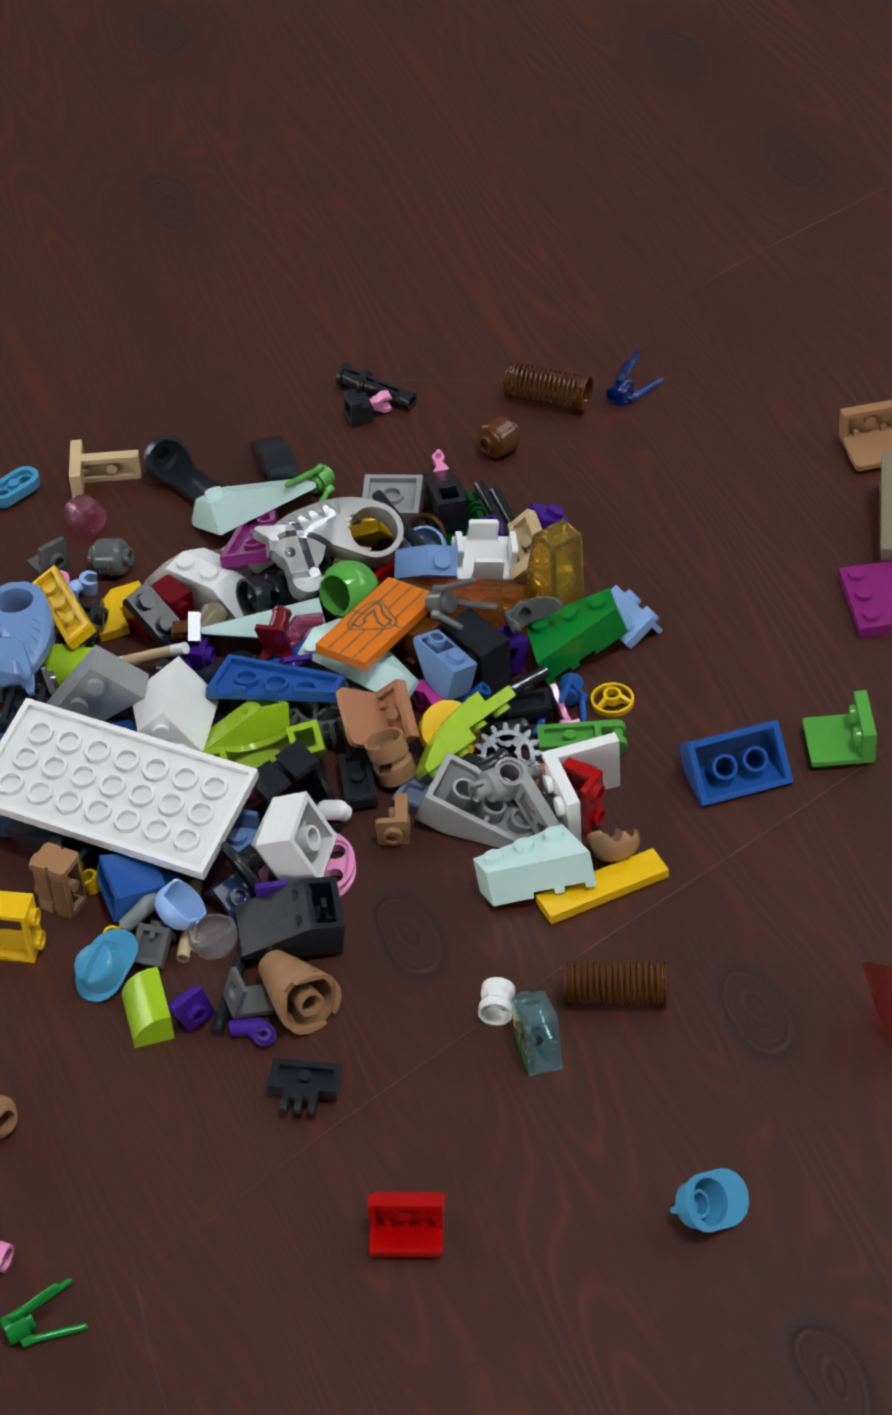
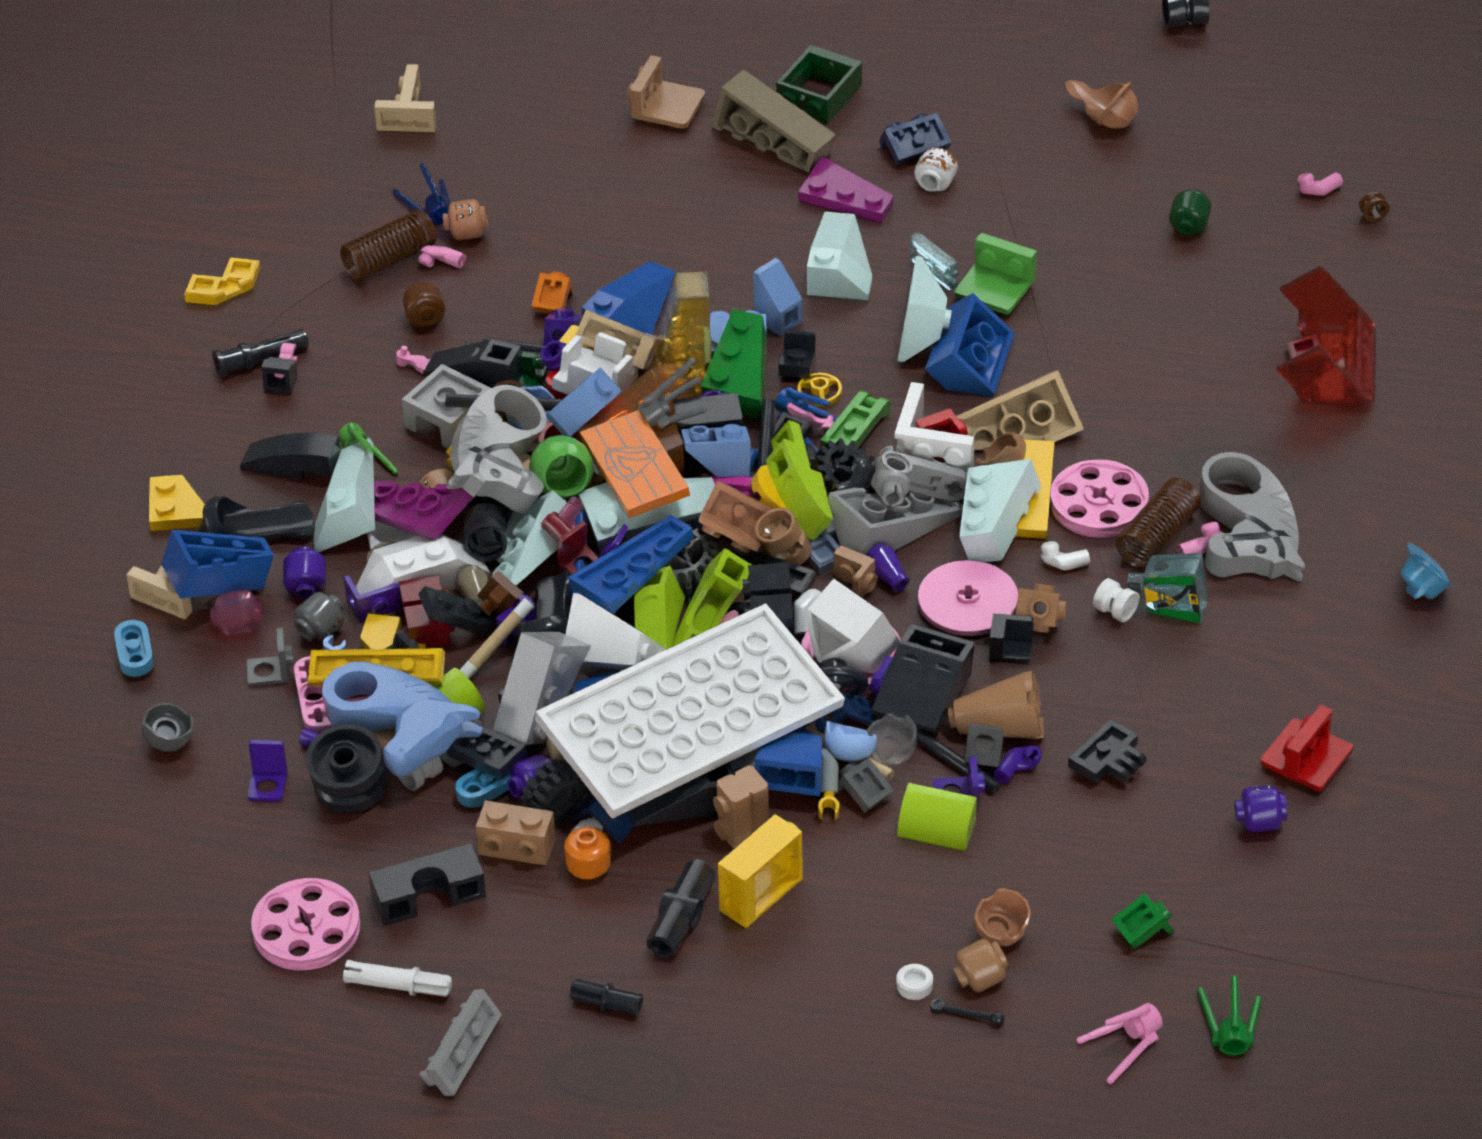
camera: 60 degrees left, 0 degrees up
(51, 1103) = (1002, 917): none -> nougat hair
(104, 964) = (861, 824): dark azure piece -> none
(105, 473) = (215, 563): none -> blue wedge
(117, 1199) = (1142, 920): none -> green bracket
(148, 573) = (379, 601): none -> dark purple bracket
(153, 526) = (304, 572): none -> dark purple head
(185, 425) = (173, 504): none -> yellow wing
(303, 1218) = (1261, 808): none -> dark purple head
(394, 955) = (1011, 638): none -> black panel
(412, 921) = (944, 593): none -> bright pink piece
(422, 836) = (888, 567): none -> dark purple cone
(428, 333) = (211, 290): none -> yellow tile
(440, 953) = (1055, 608): none -> medium nougat brick
(526, 944) = (1063, 561): none -> white arm
(531, 610) = (710, 365): dark grey helmet -> none
(574, 420) = (441, 253): none -> bright pink arm
(578, 494) = (551, 292): none -> orange bracket
(615, 541) = (635, 297): none -> blue wedge
(615, 925) = (1097, 497): none -> bright pink wedge
(616, 409) = (465, 219): none -> nougat head
(620, 1027) = (1200, 544): none -> bright pink arm
(631, 667) = (798, 354): none -> black bracket
(678, 614) = (777, 297): none -> medium blue slope
(680, 1059) = (1261, 523): none -> light grey animal
(683, 836) = (1032, 410): none -> tan wedge
(718, 318) = (406, 111): none -> tan bracket
(742, 700) = (925, 312): none -> light aqua wedge
(775, 629) = (838, 259): none -> light aqua wedge
(826, 686) = (937, 260): none -> clear light blue tile

